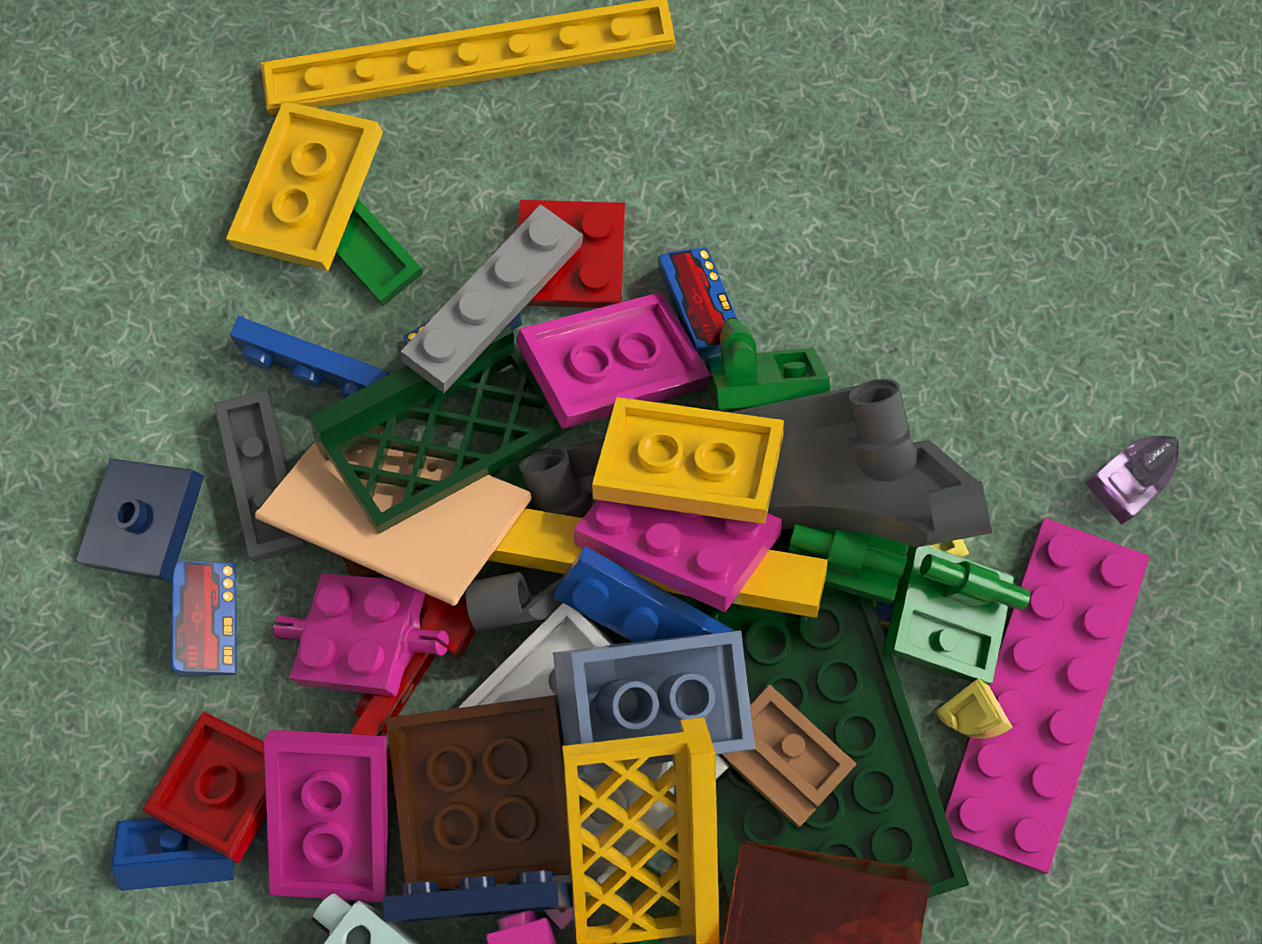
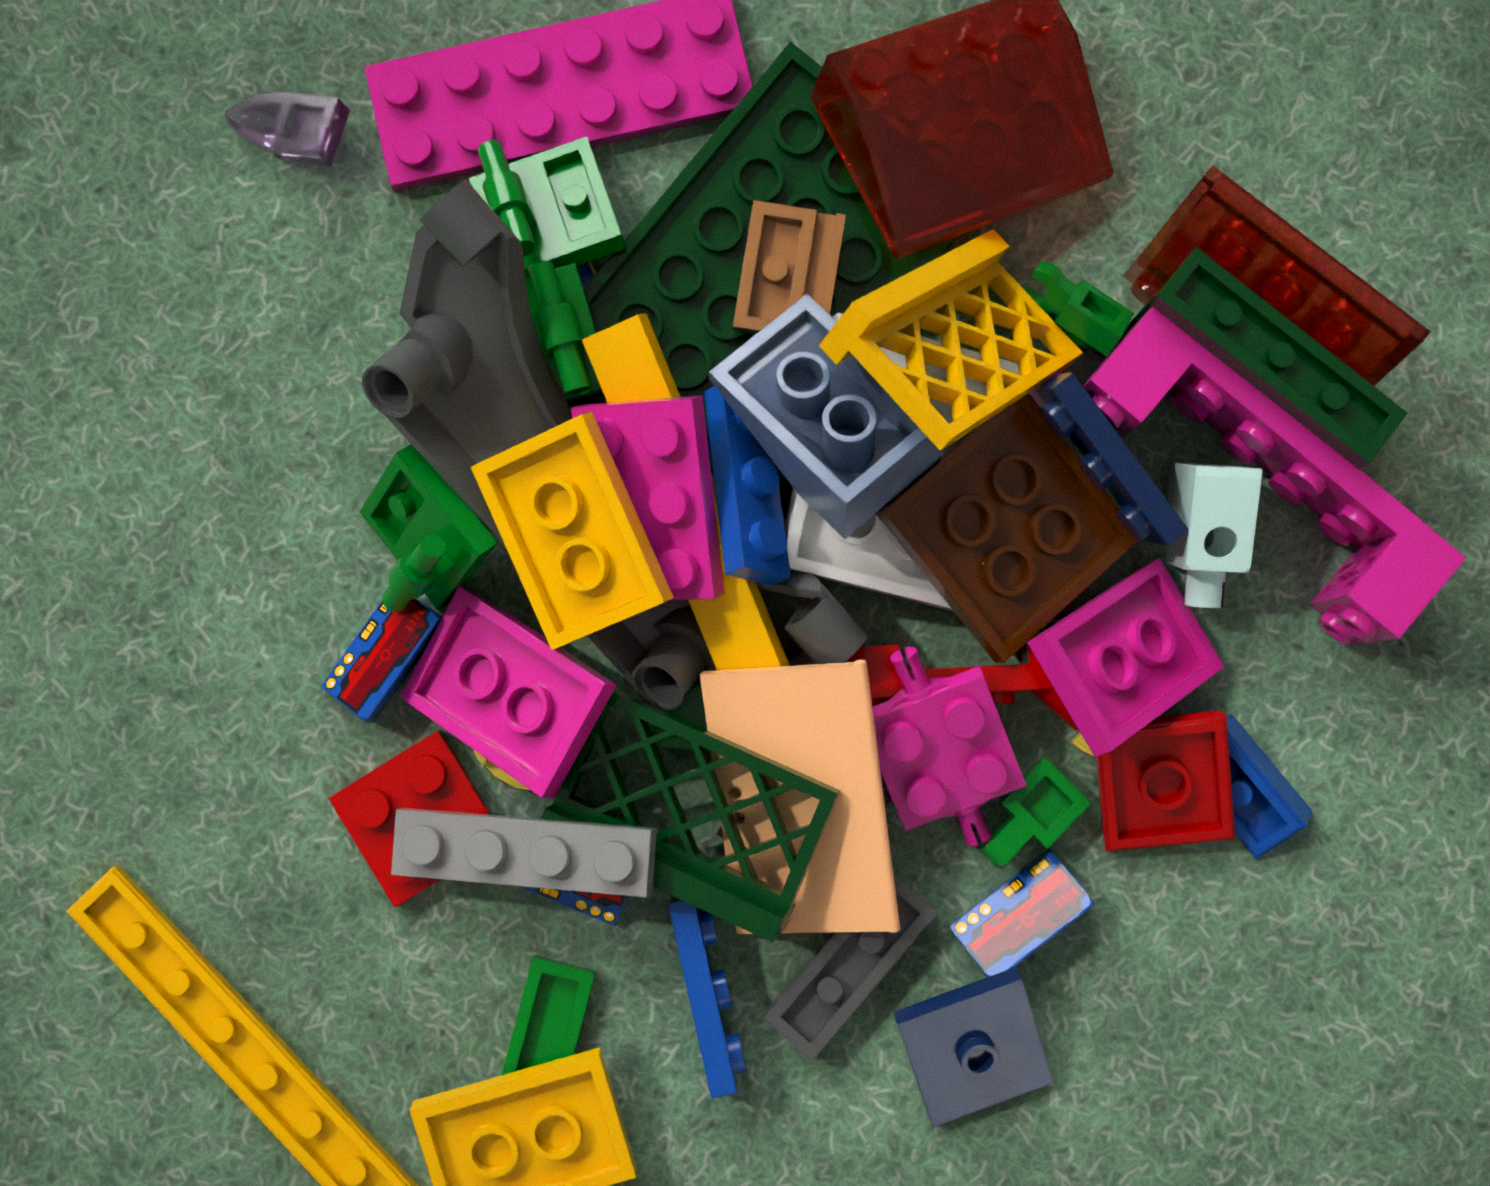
camera: 130 degrees left, 10 degrees up
(265, 681) = (1035, 812): none -> green plate
(975, 712) = (625, 134): light yellow tile -> none

